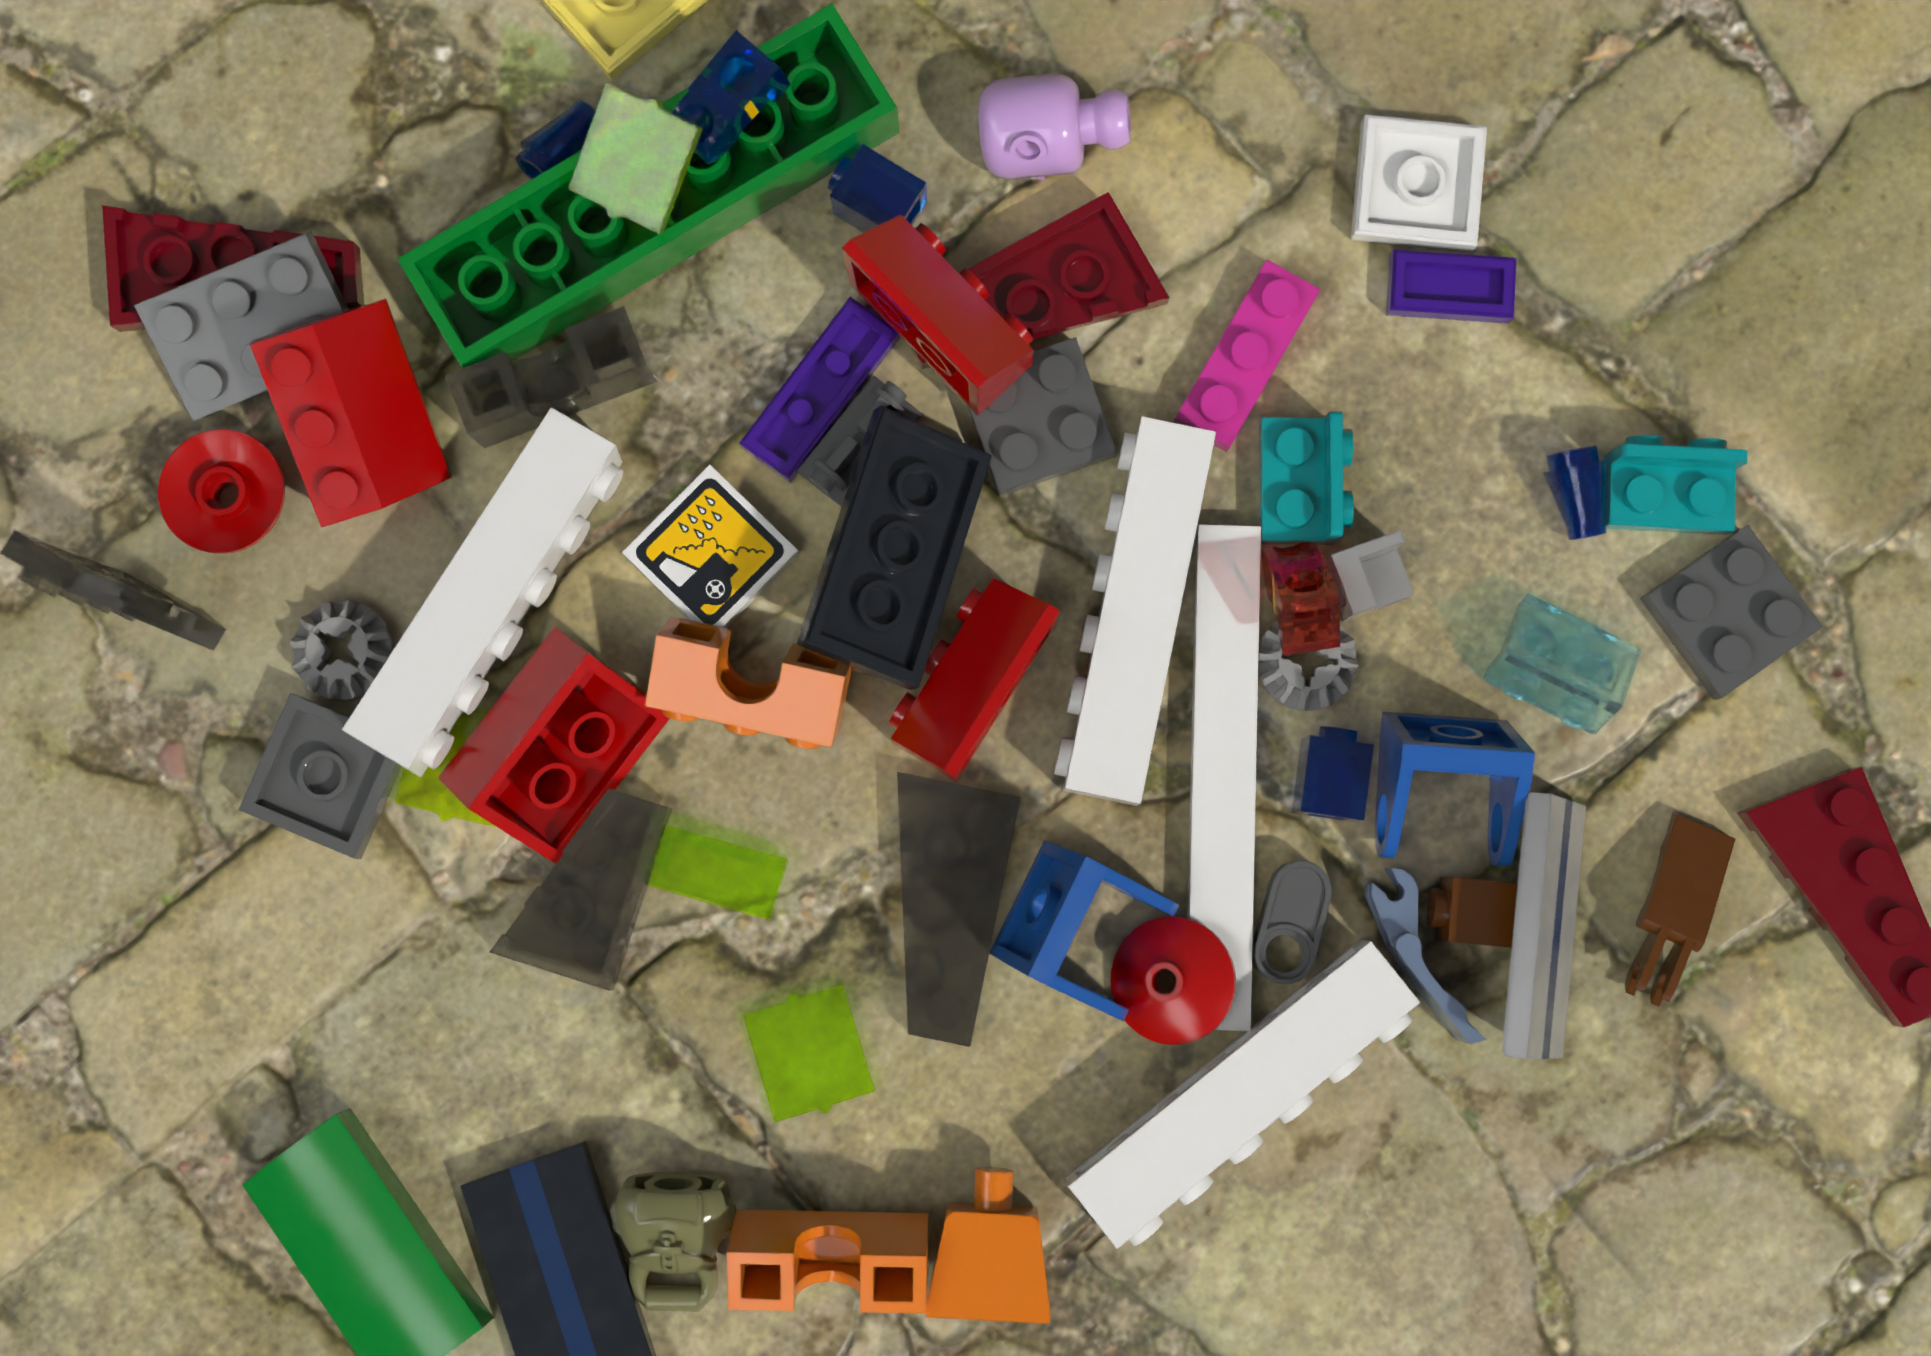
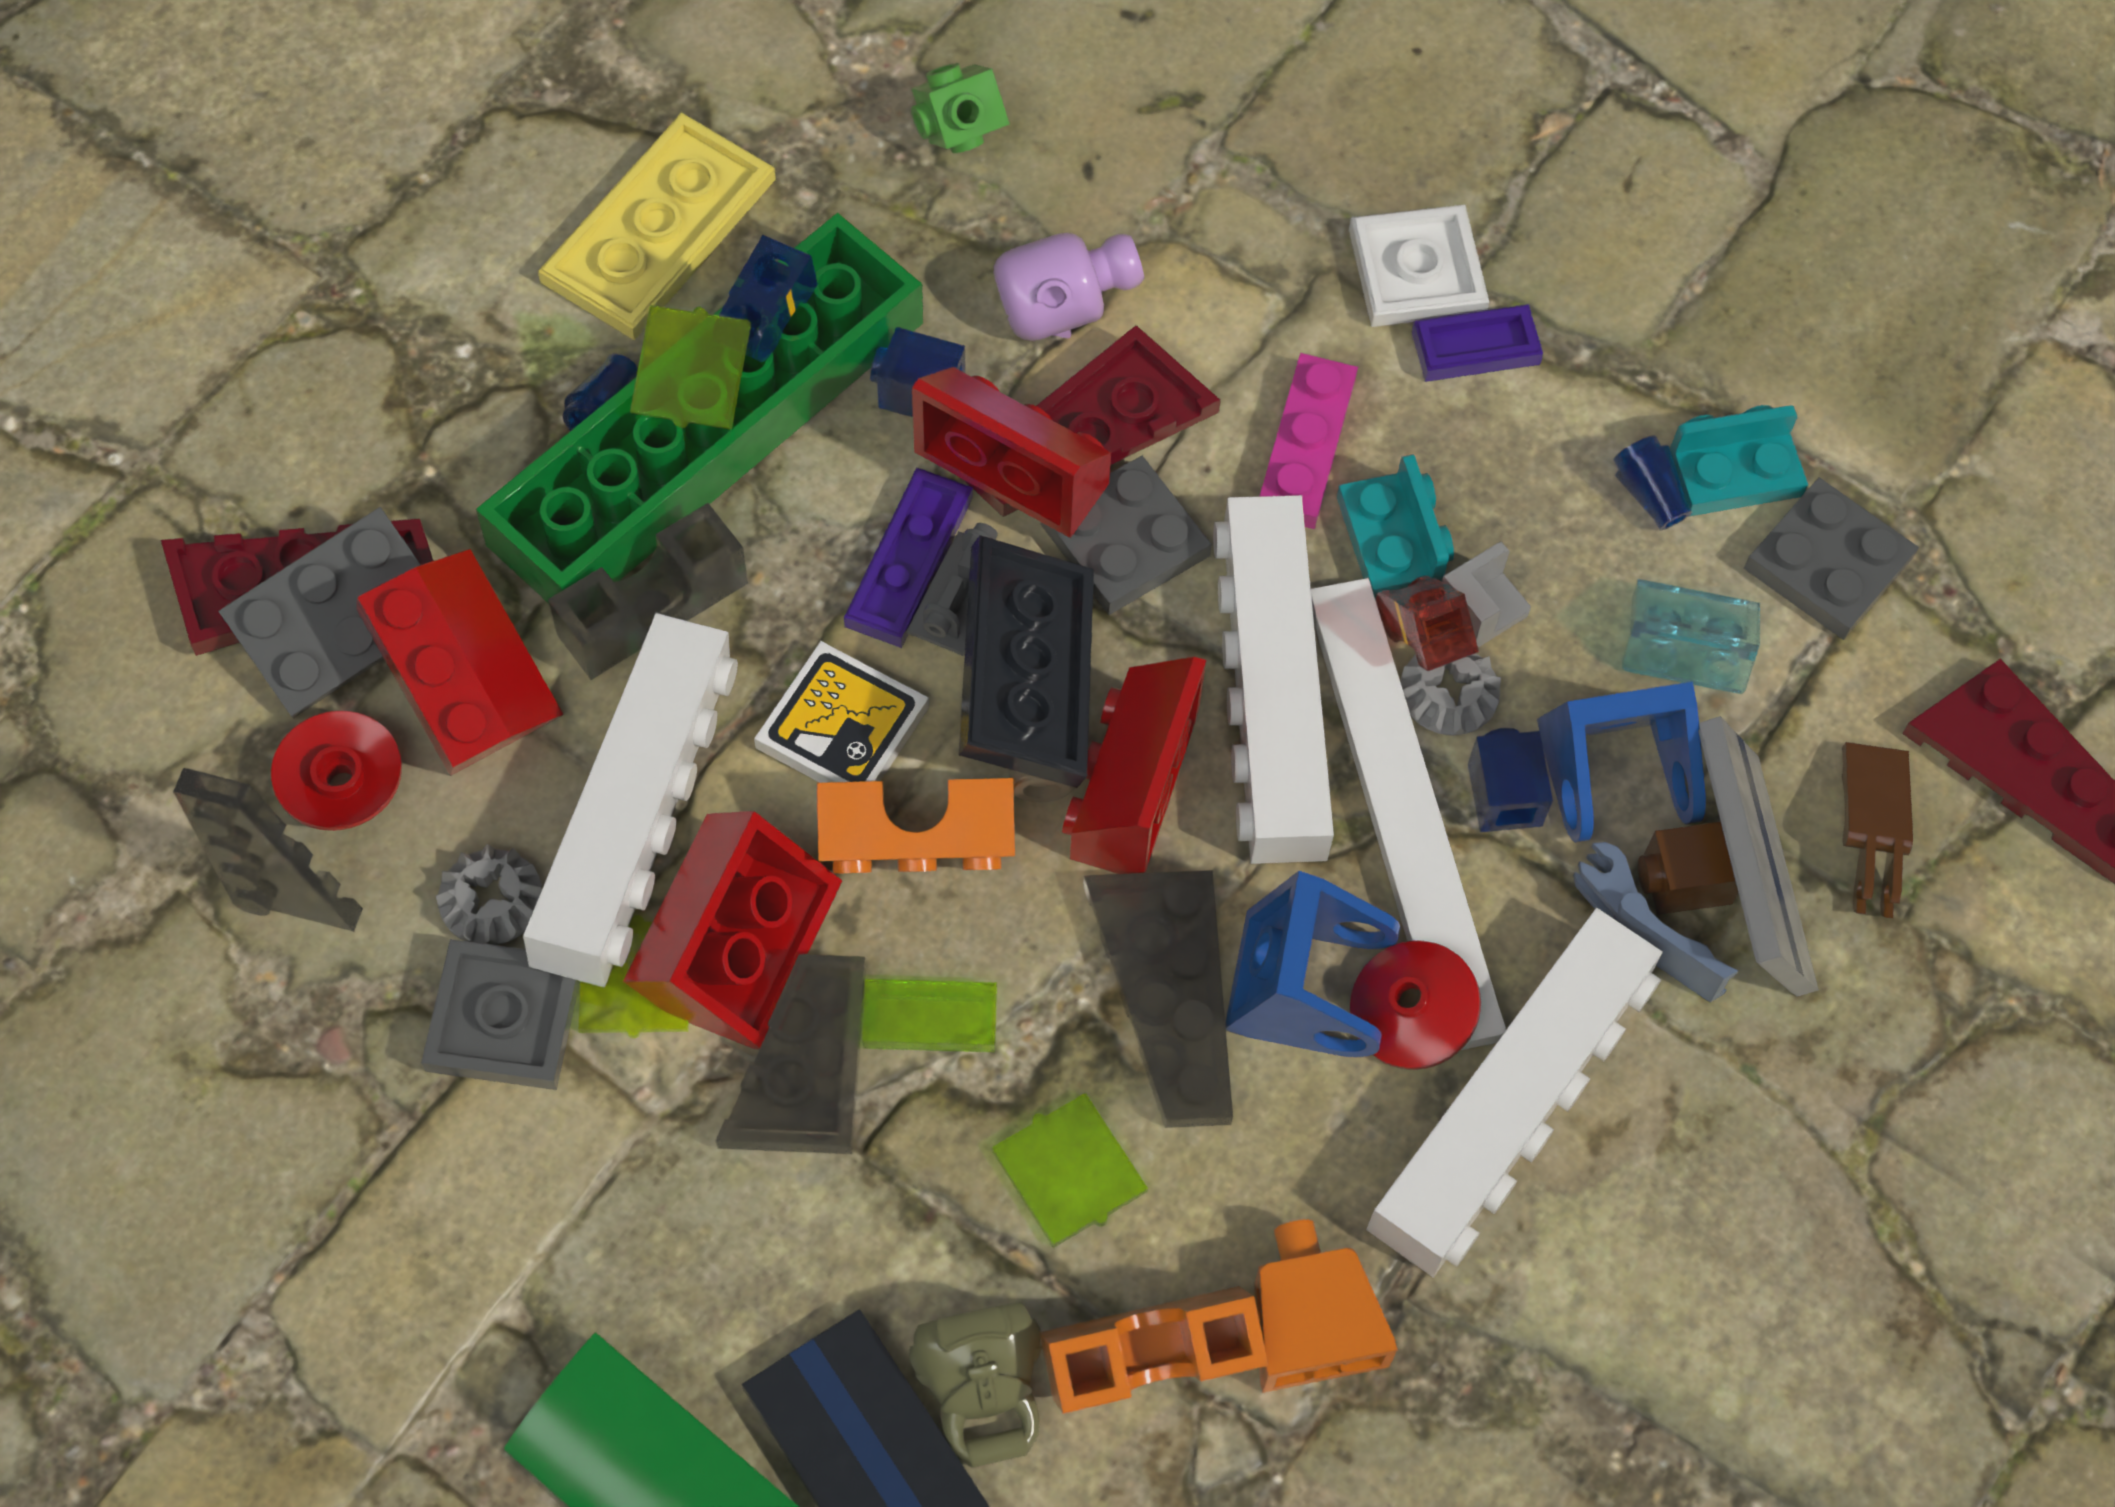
camera: 20 degrees left, 20 degrees down
(1295, 907) = (1513, 911): dark grey piece -> none

